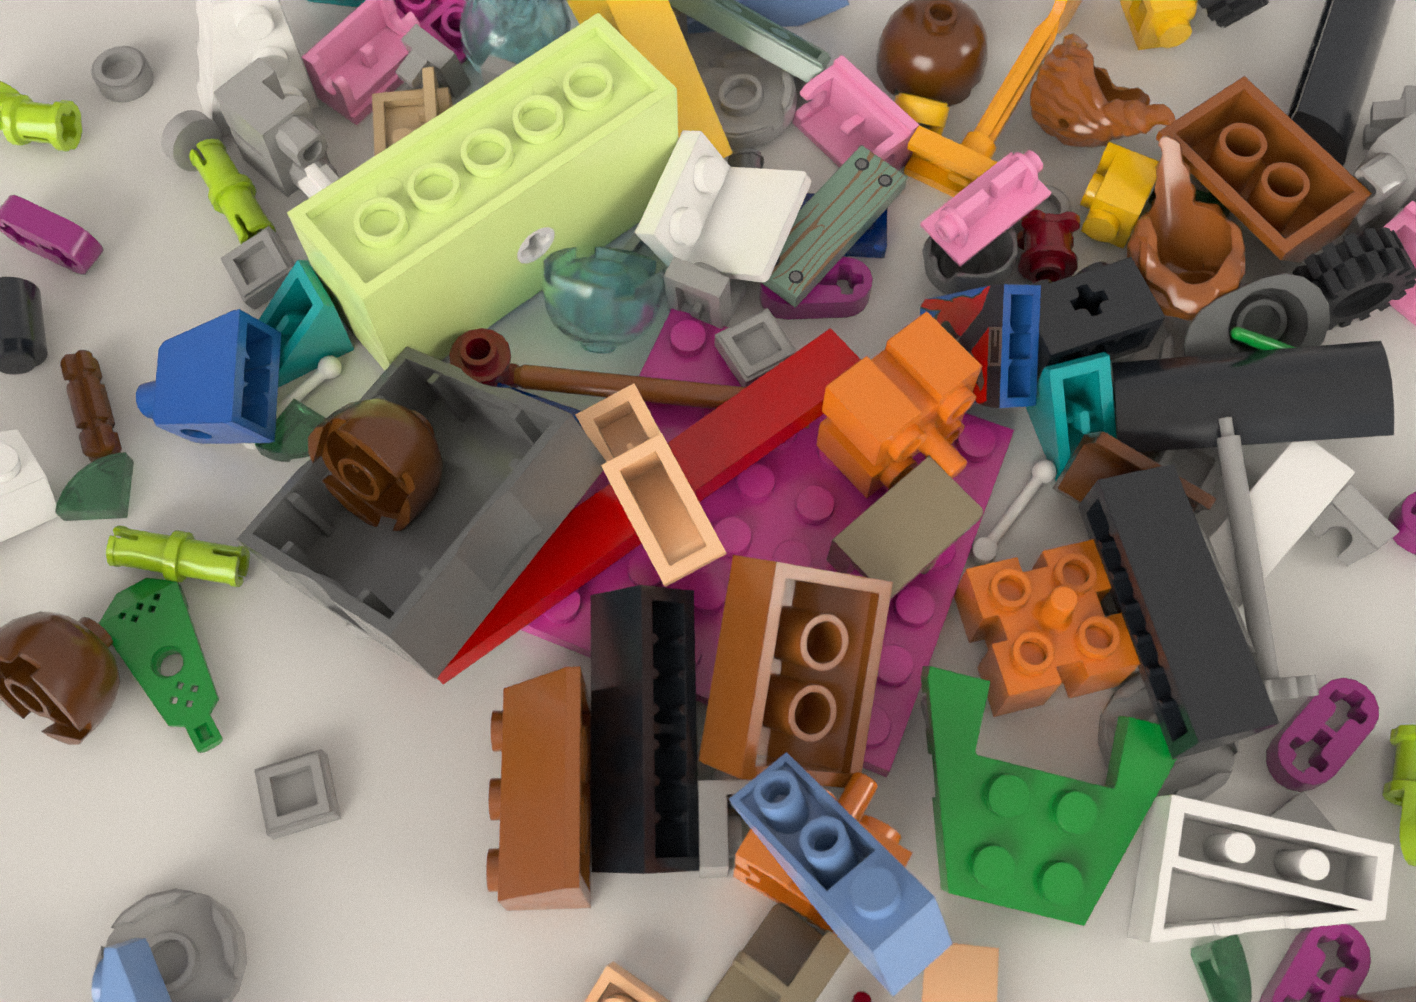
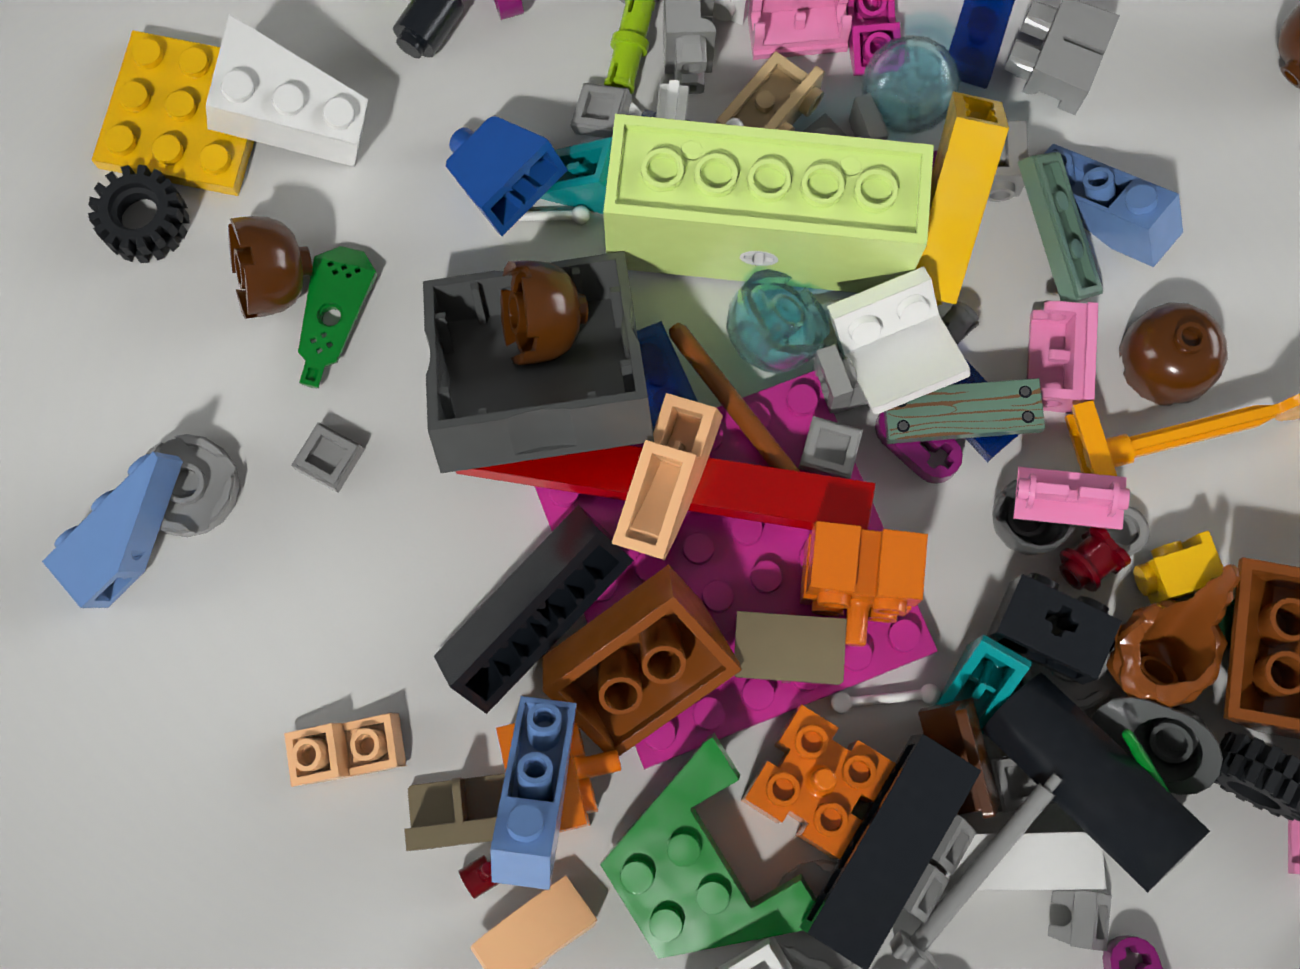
camera: 45 degrees right, 10 degrees up
(90, 405) = (427, 113): reddish brown axle -> none
(98, 490) = (386, 172): clear green tile -> none
(178, 556) = (389, 255): lime pin -> none
(291, 433) = (523, 241): clear green tile -> none
(429, 52) = (833, 59): light grey tile -> none
(484, 357) = (667, 311): dark red brick -> none
(542, 794) = (445, 590): dark orange slope -> none
(718, 832) = (505, 708): light grey bracket -> none
(750, 98) = (1008, 270): light grey tile -> none
(924, 110) = (1116, 390): yellow tile -> none
(1001, 332) = (966, 582): torso -> none
(1082, 103) = (1232, 487): dark orange hair -> none

